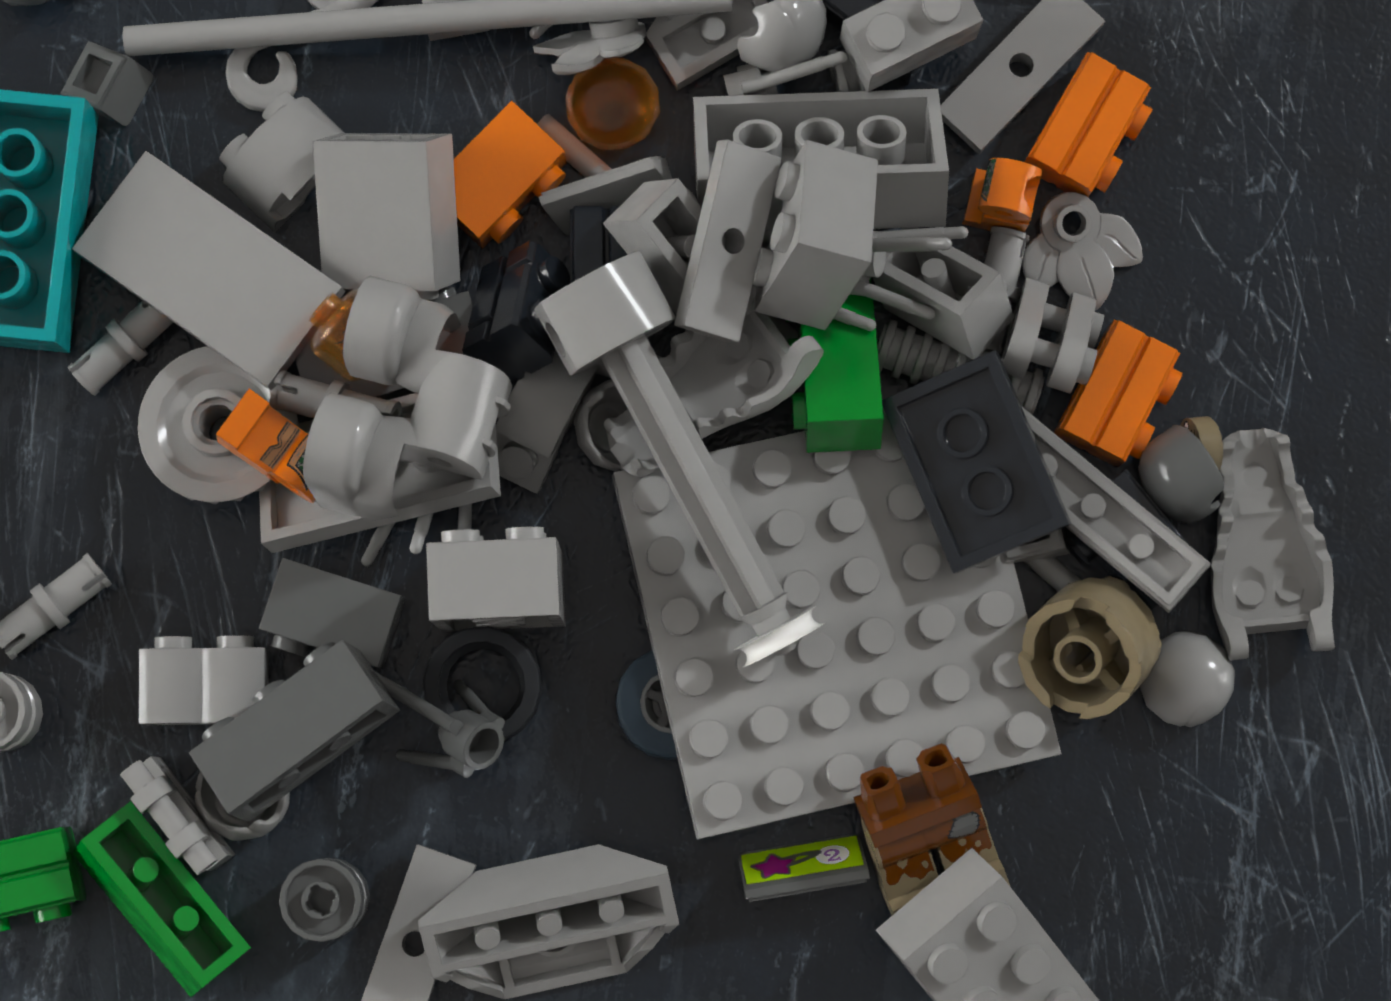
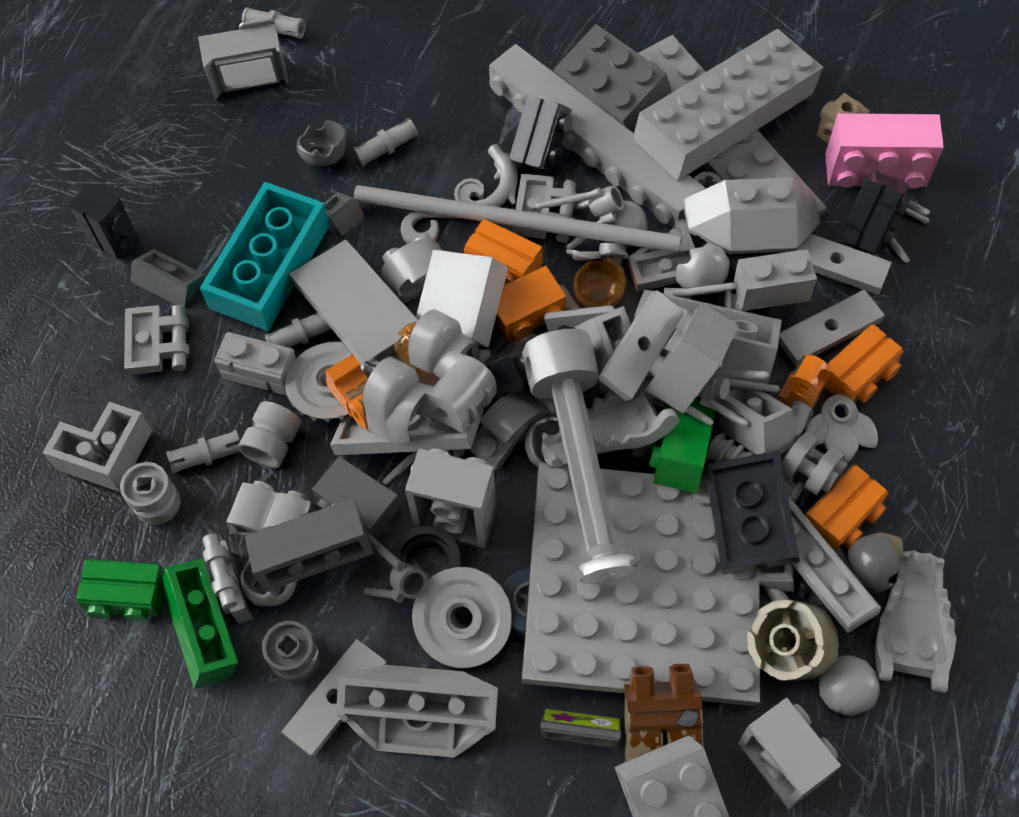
camera: 25 degrees right, 20 degrees down
(74, 425) = (254, 362): none -> light grey brick
(149, 548) = (271, 431): none -> light grey wheel
(426, 91) = (506, 247): none -> orange brick
(580, 796) = (447, 638): none -> light grey gear
(1124, 822) = (789, 752): none -> light grey brick

